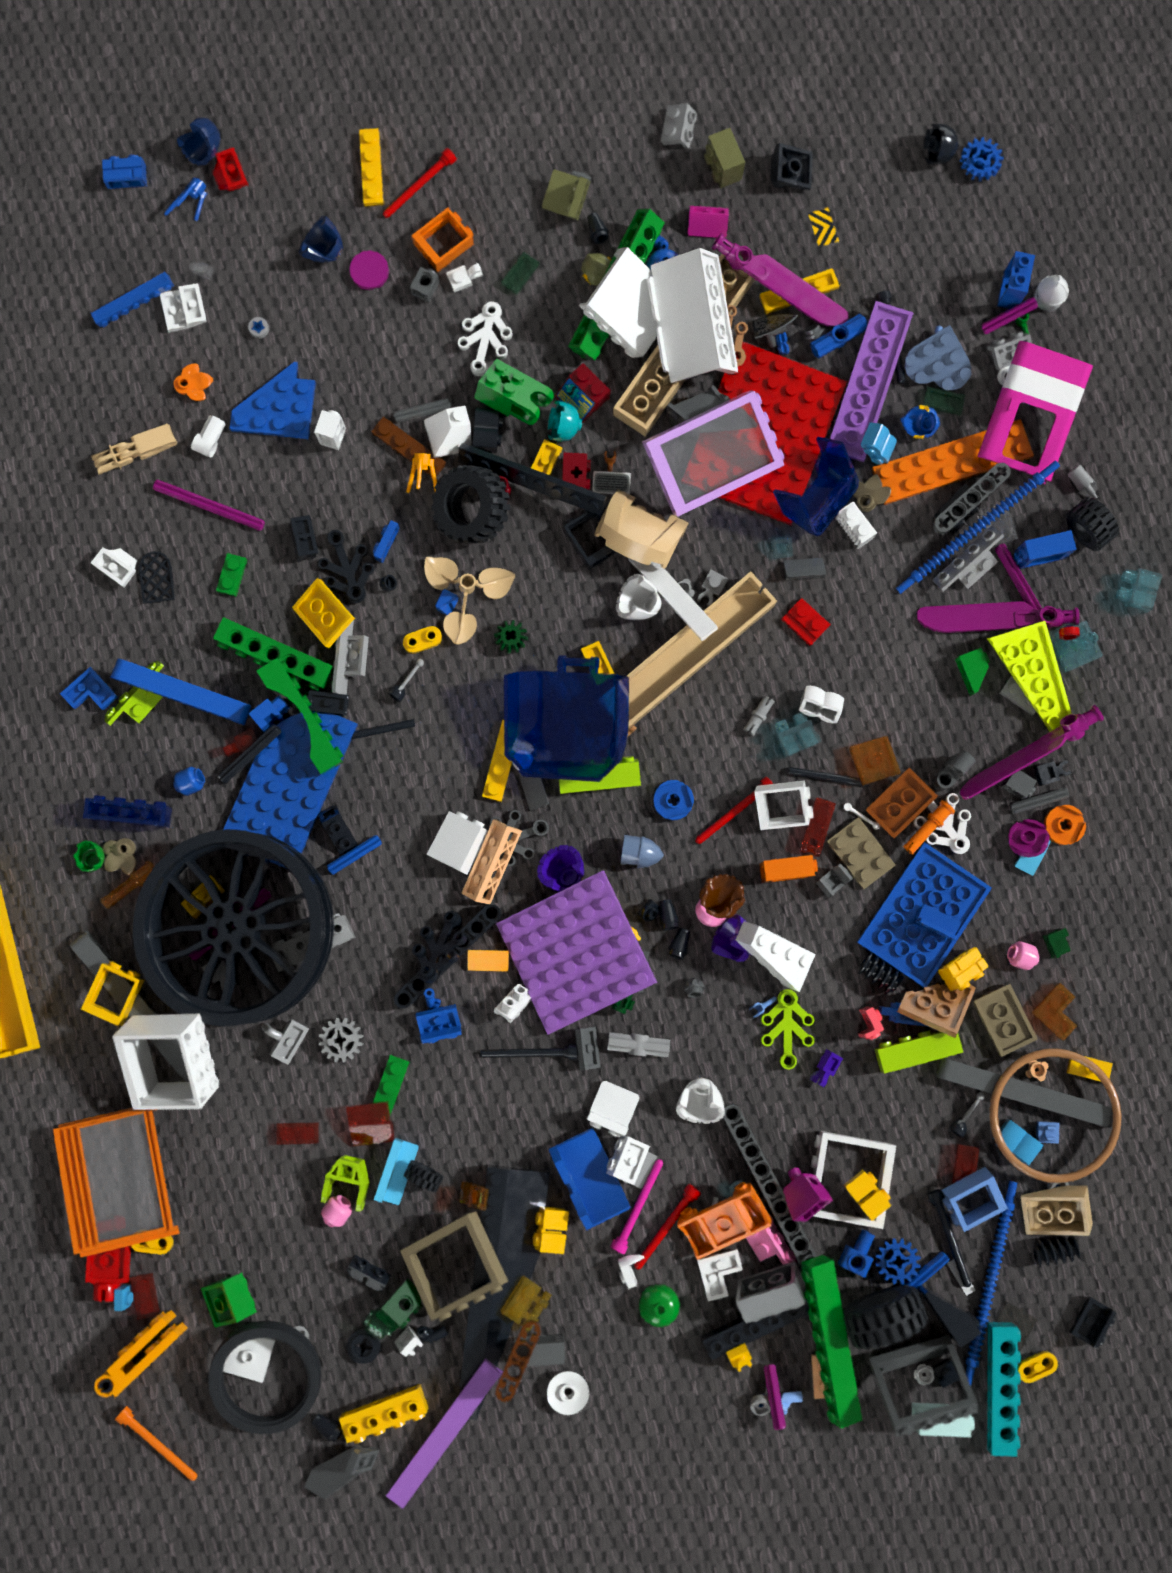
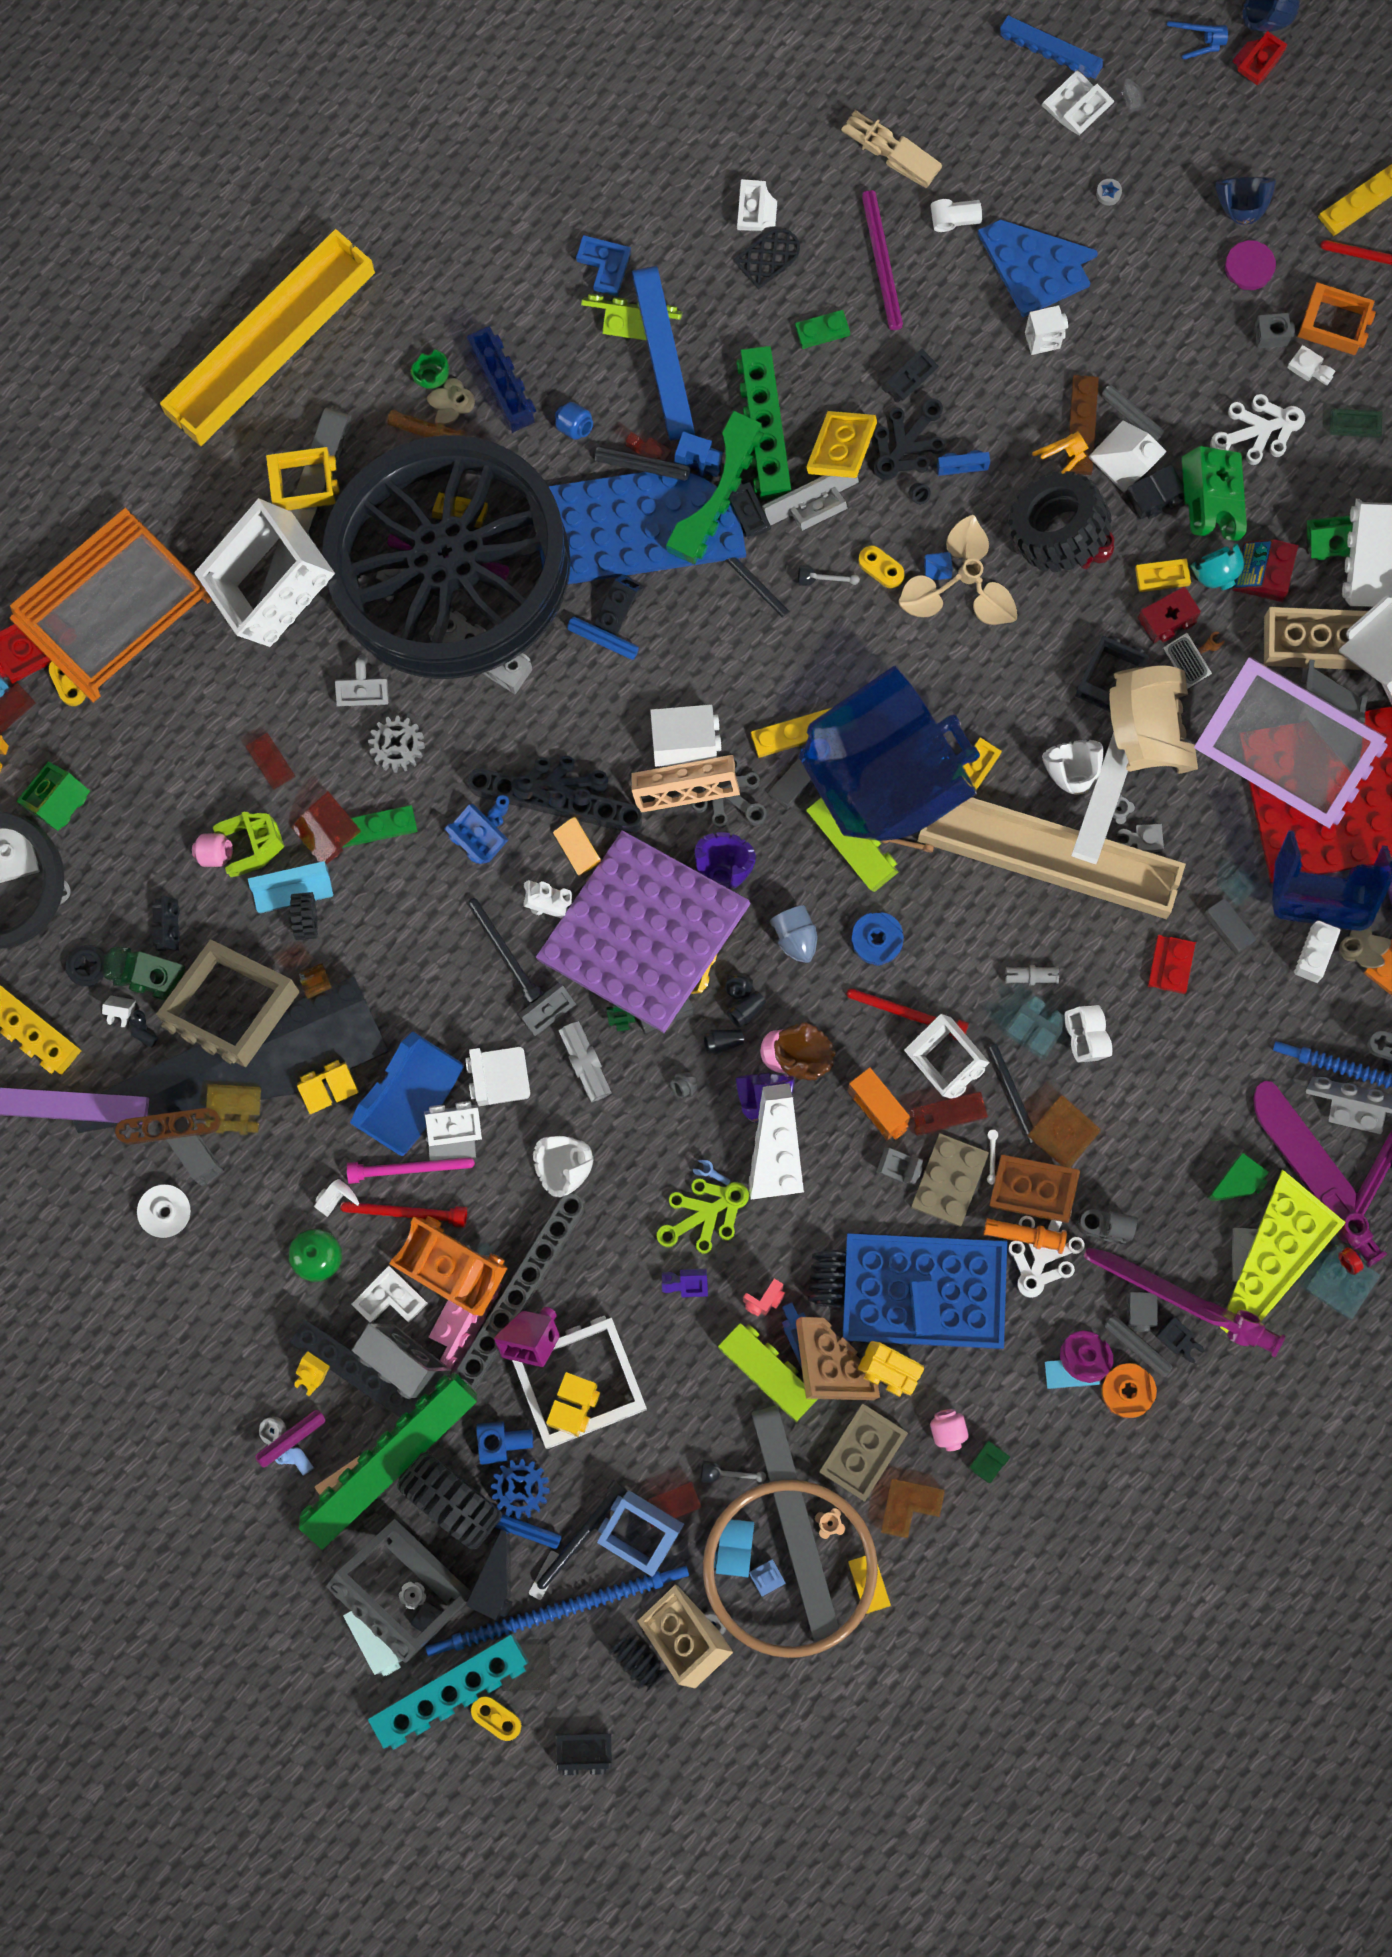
camera: 65 degrees right, 5 degrees down
(195, 381) = (1006, 165): orange plate -> none
(510, 629) = (935, 657): dark green gear -> none
(533, 479) = (1132, 571): black plate -> none

